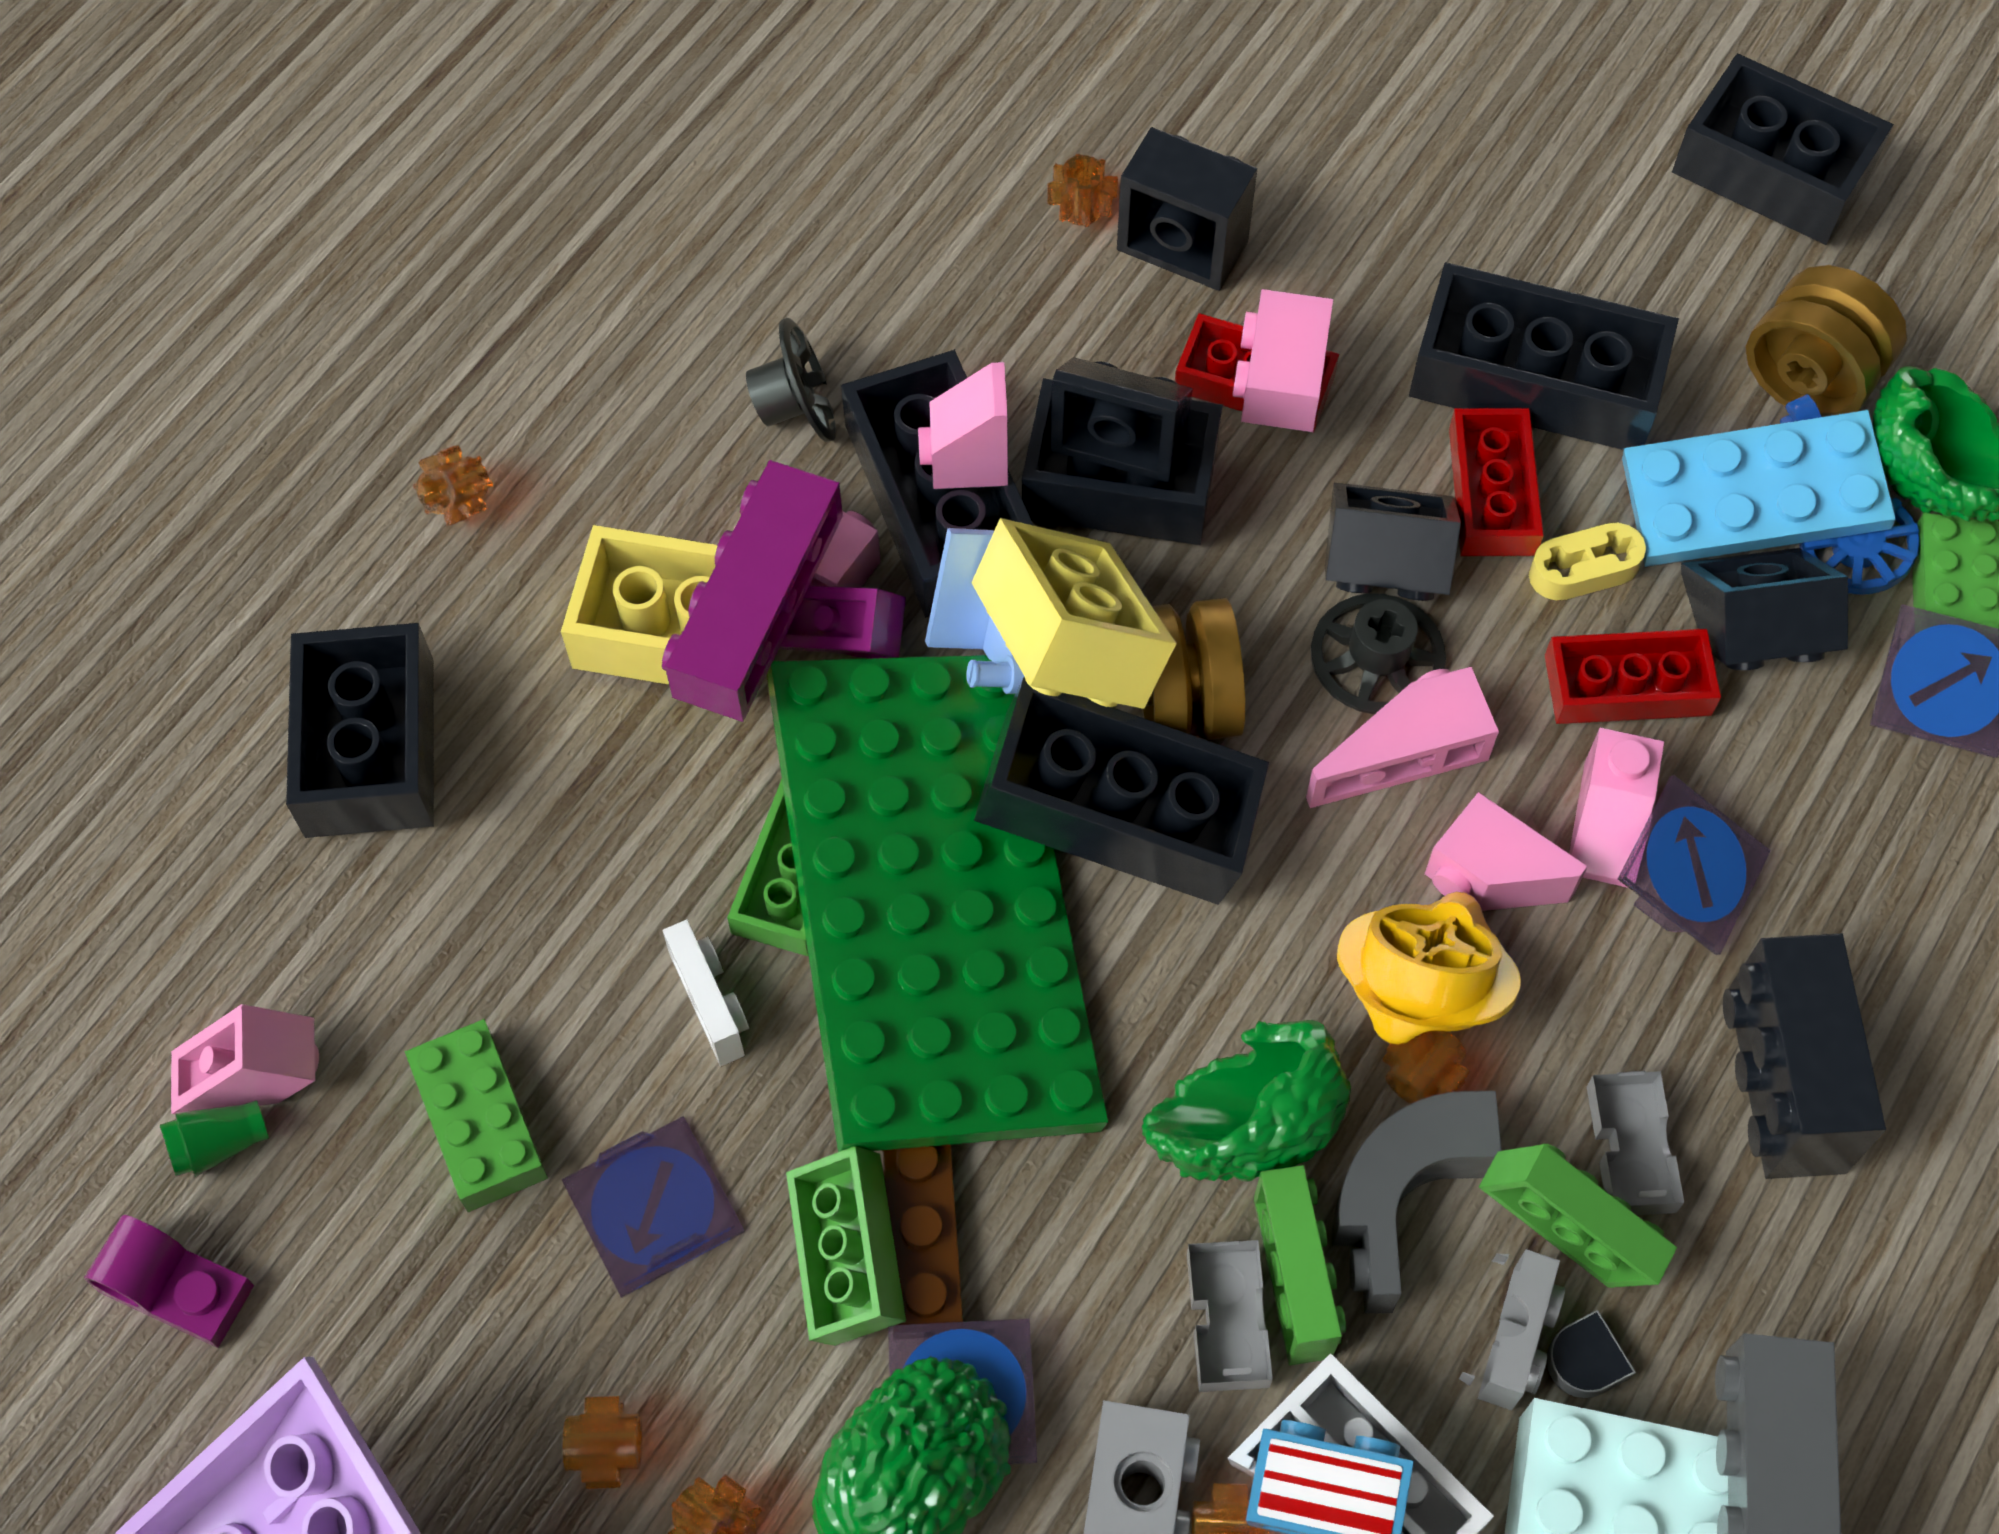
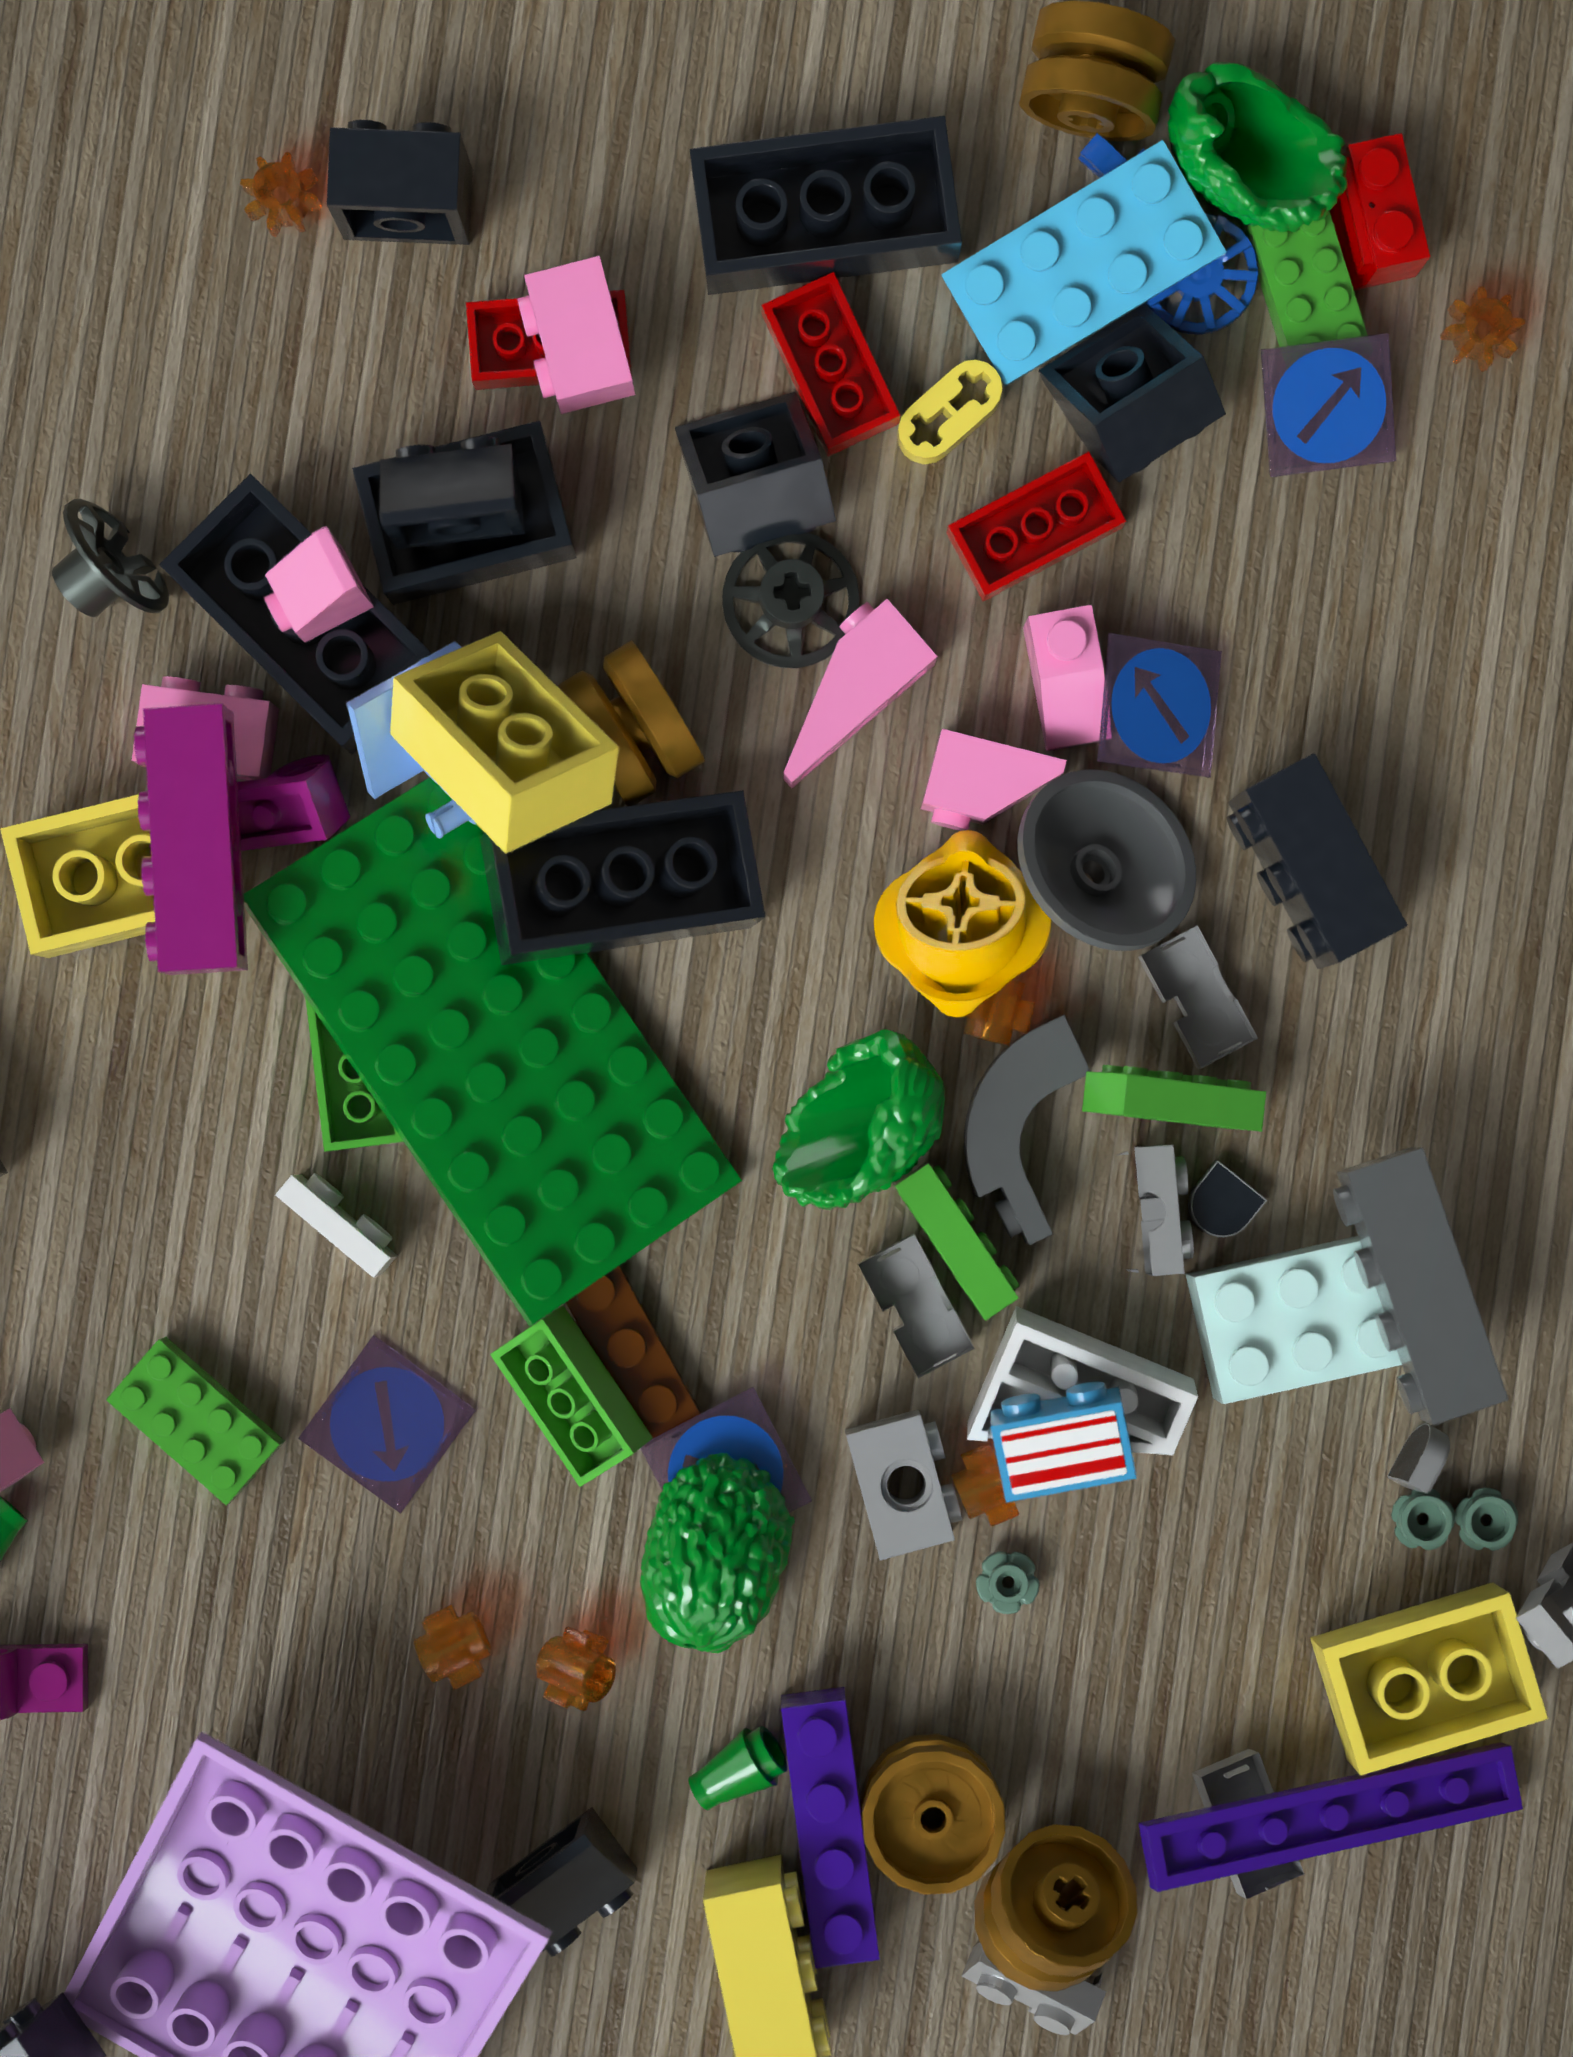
camera: 25 degrees left, 25 degrees up
(1592, 972) = (1124, 843): none -> dark grey dish

